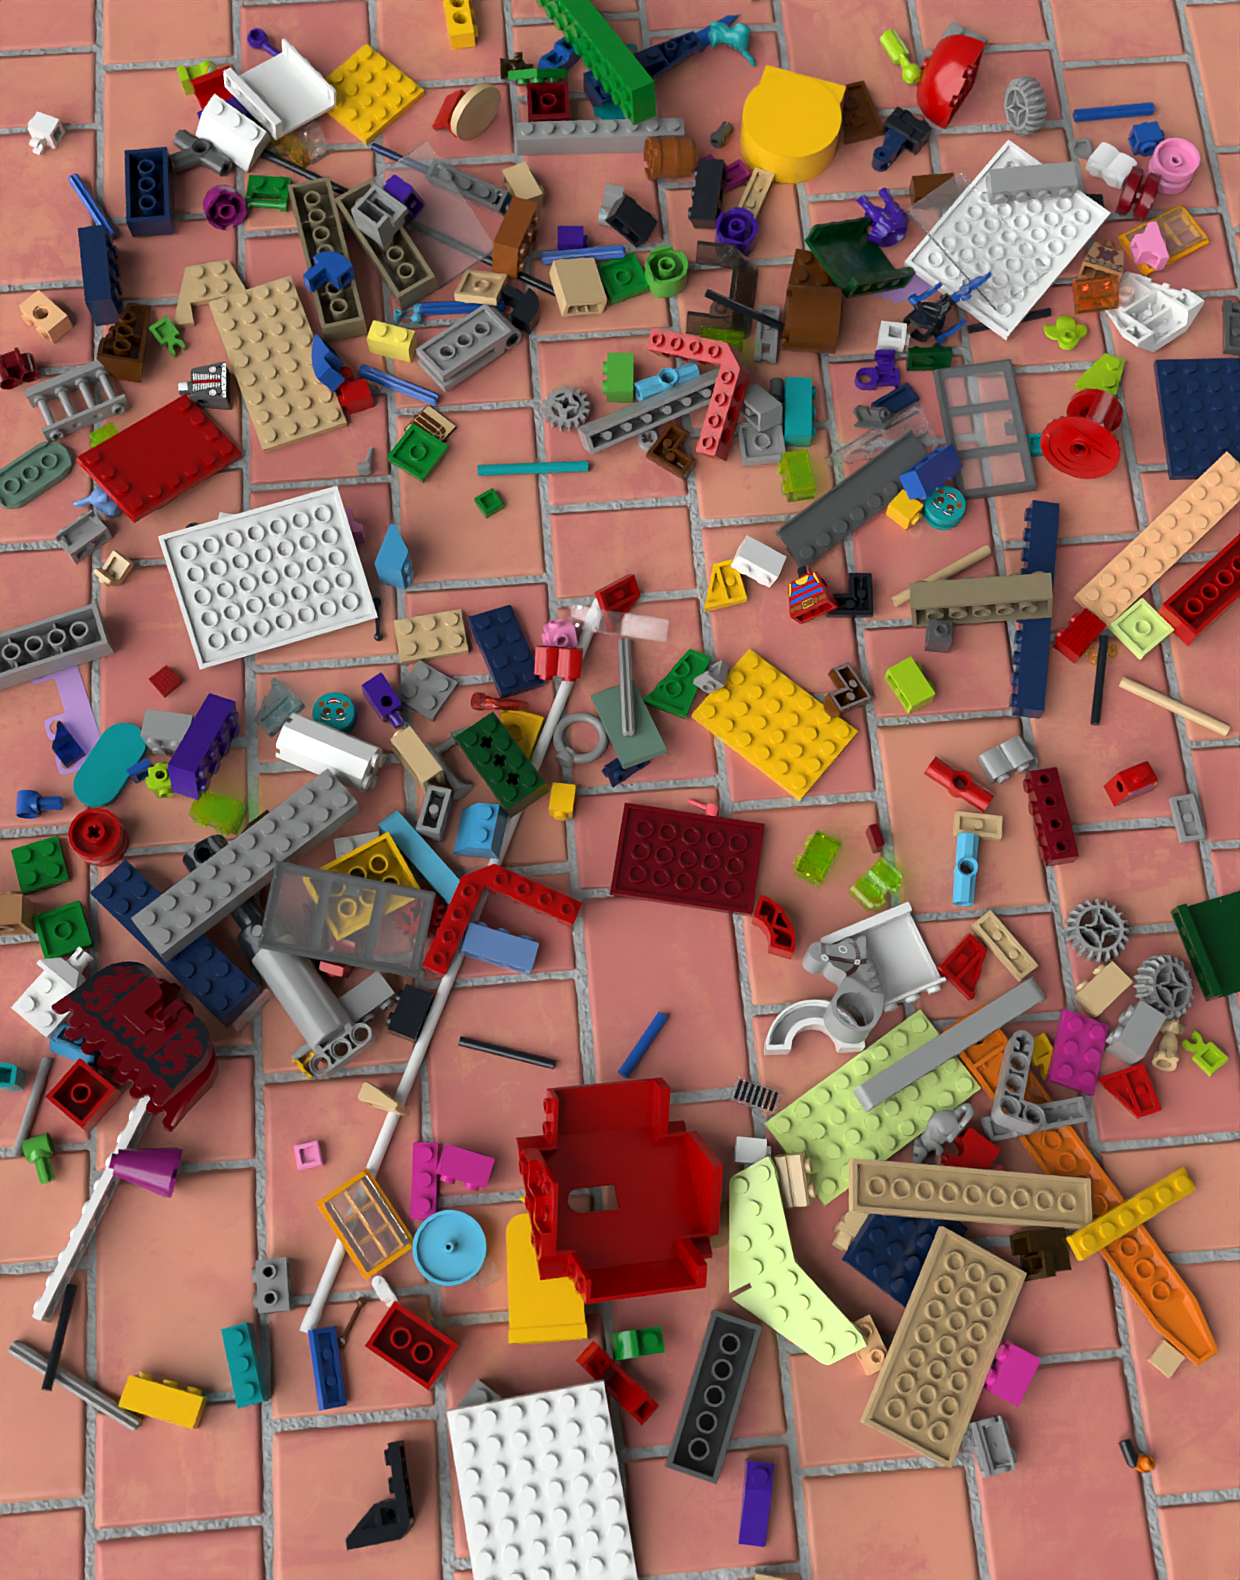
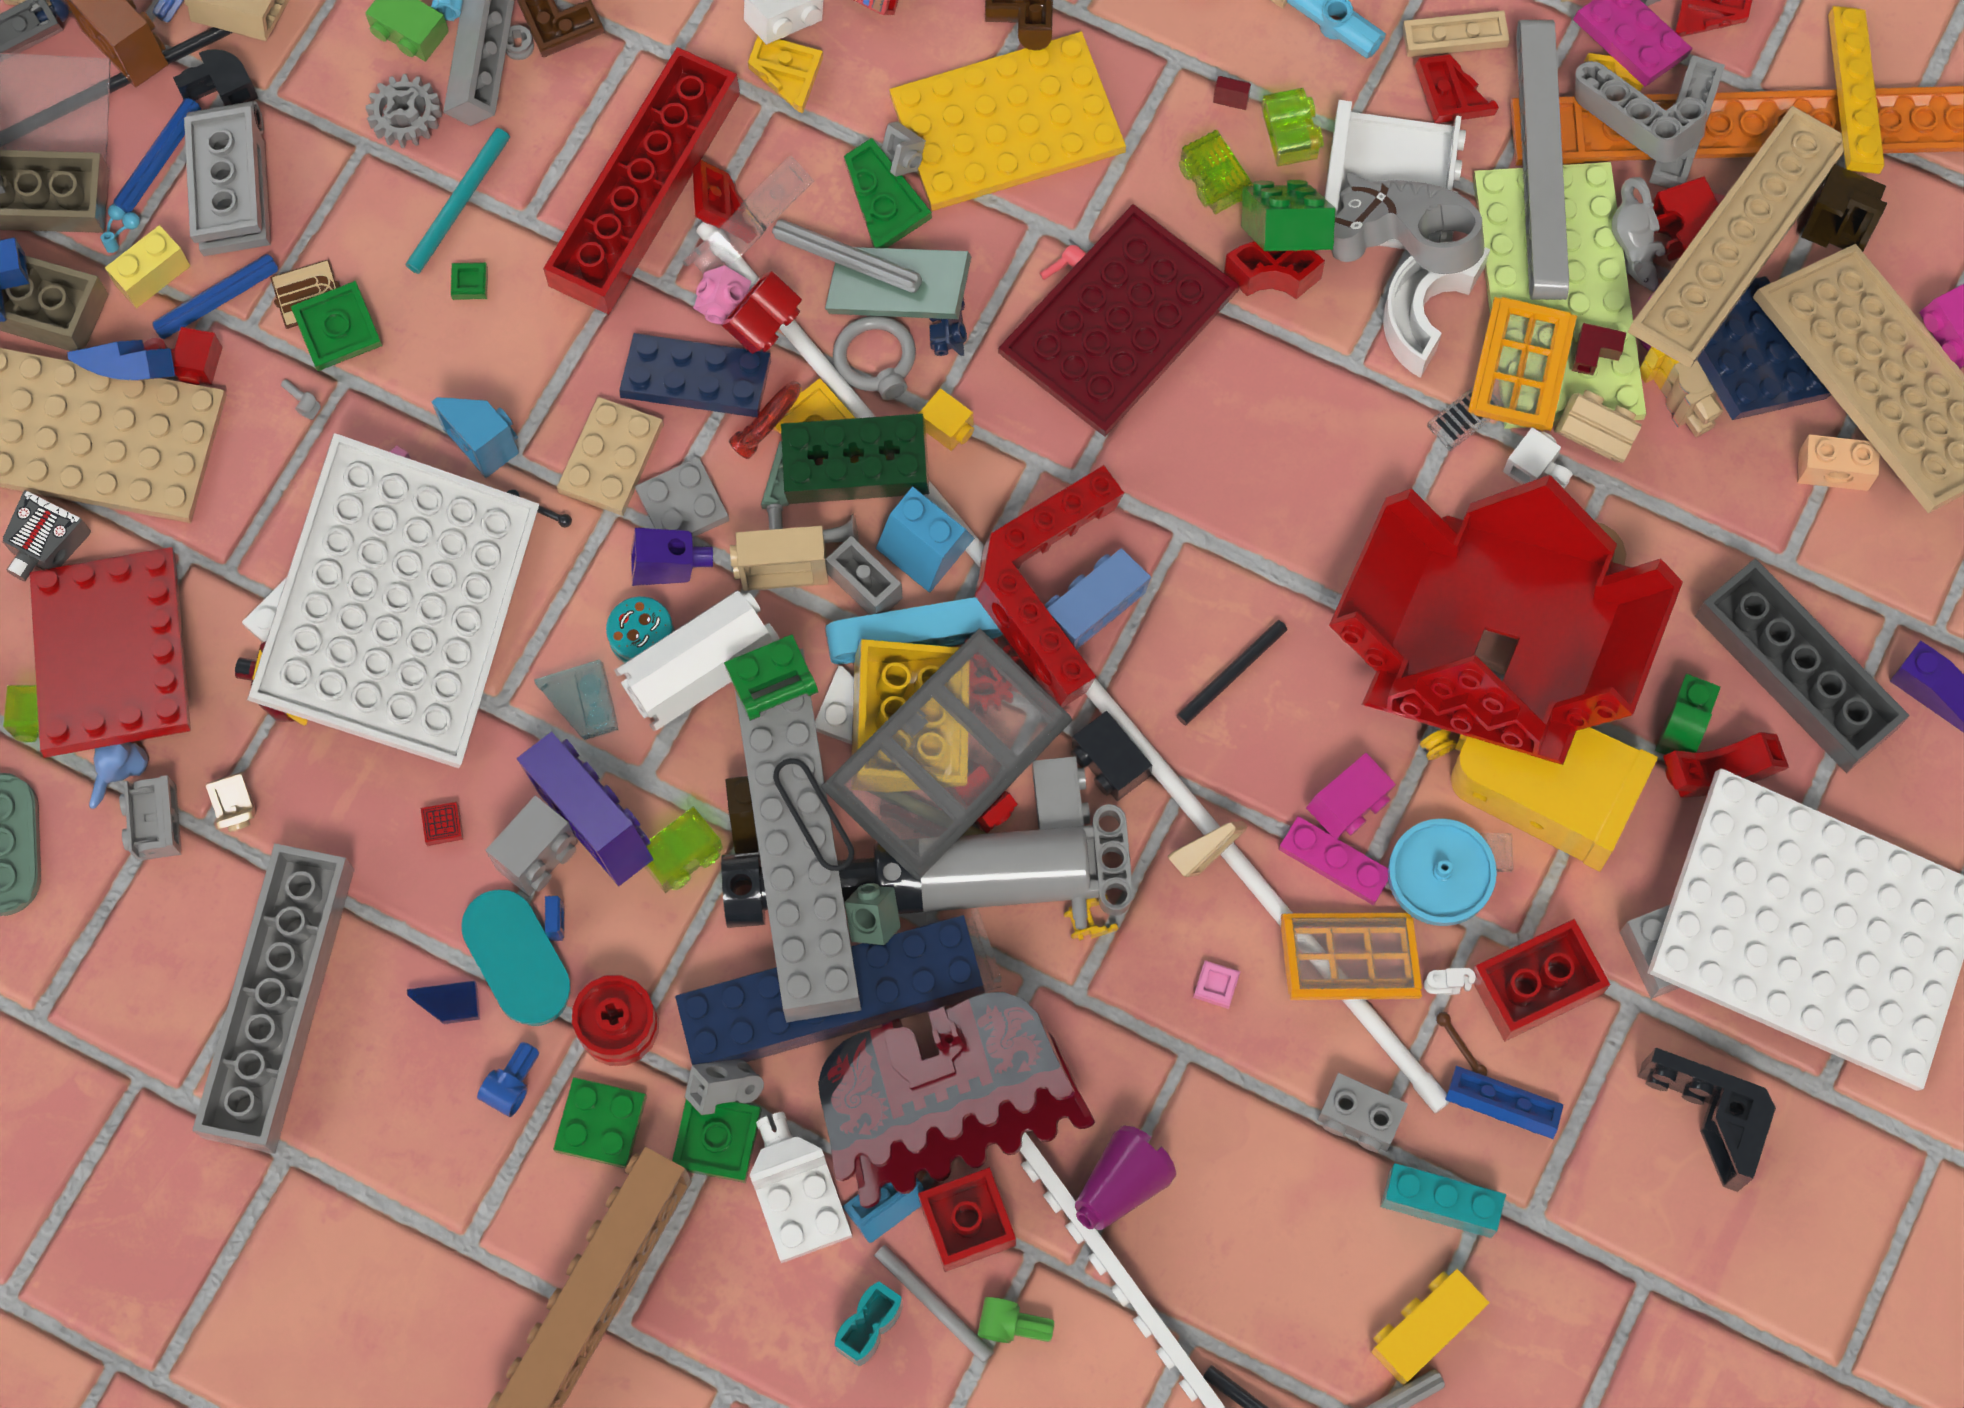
camera: 55 degrees left, 0 degrees up
(77, 716) = (410, 968): lavender piece -> none
(90, 915) = (722, 1083): none -> light grey leg
(159, 780) = (593, 905): lime brick -> none
(226, 935) = (872, 914): none -> sand green brick
(247, 861) = (800, 823): none -> black piece
(329, 788) = (766, 668): none -> green plate
(481, 287) = (151, 112): tan plate -> none
(603, 552) = (642, 180): none -> red brick
(642, 1045) = (1322, 507): blue piece -> none
(780, 1288) = (1716, 515): yellowish green wing -> none
(805, 915) = (1287, 216): none -> green brick
(806, 1110) = (1522, 364): none -> light orange piece
(844, 1144) = (1596, 343): none -> dark red piece

